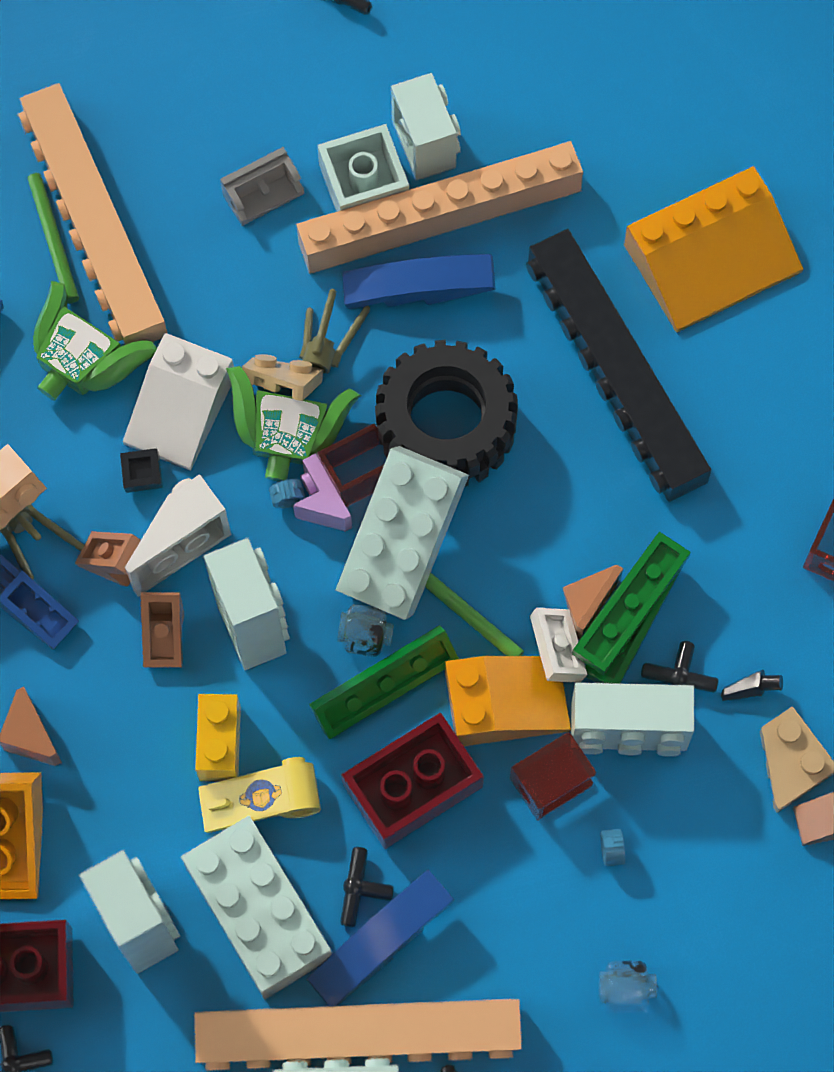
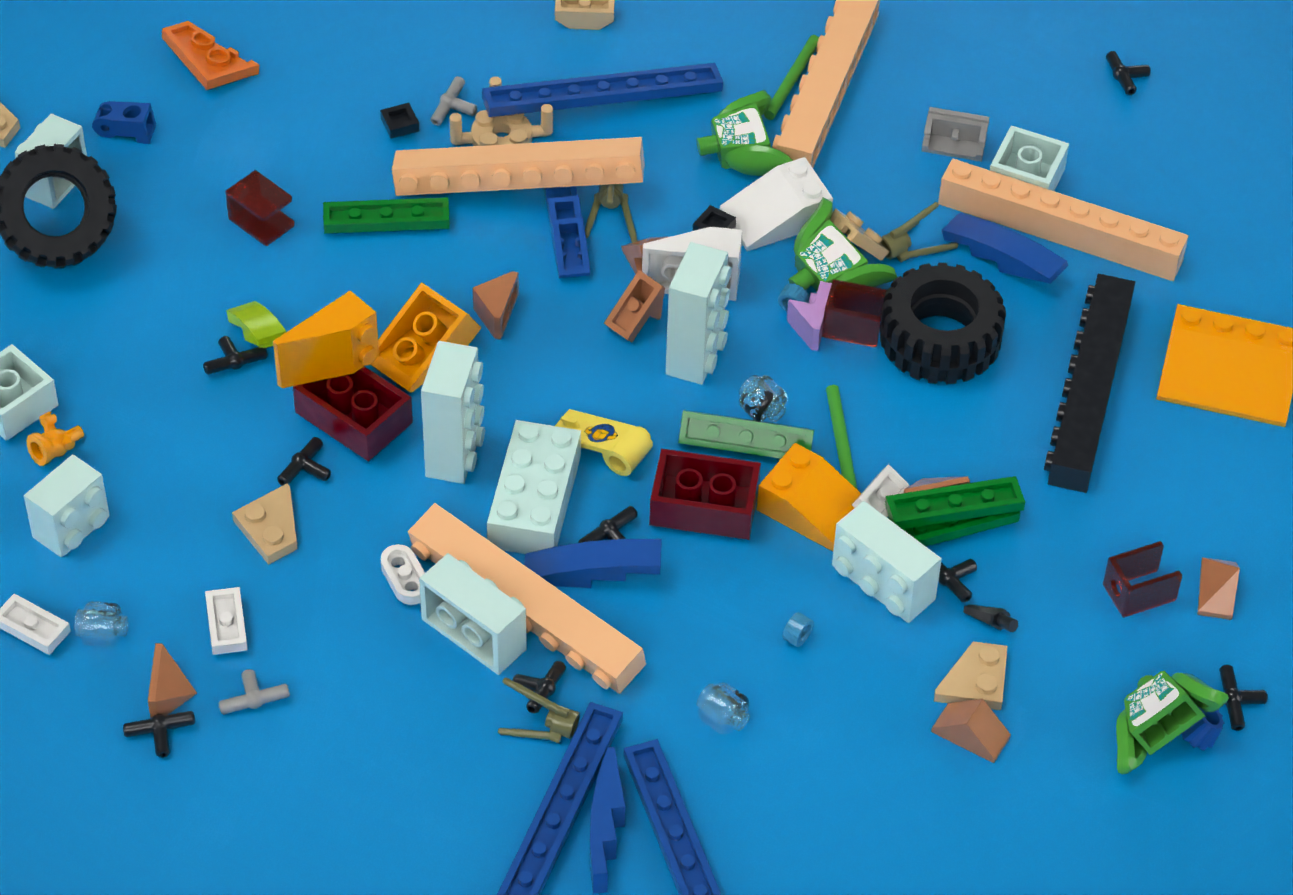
camera: 40 degrees right, 20 degrees down
(218, 737) = (609, 385): yellow brick -> none
(402, 532) = (841, 355): light aqua brick -> none
(425, 125) = (1098, 163): light aqua brick -> none
(552, 775) = (799, 560): clear red piece -> none

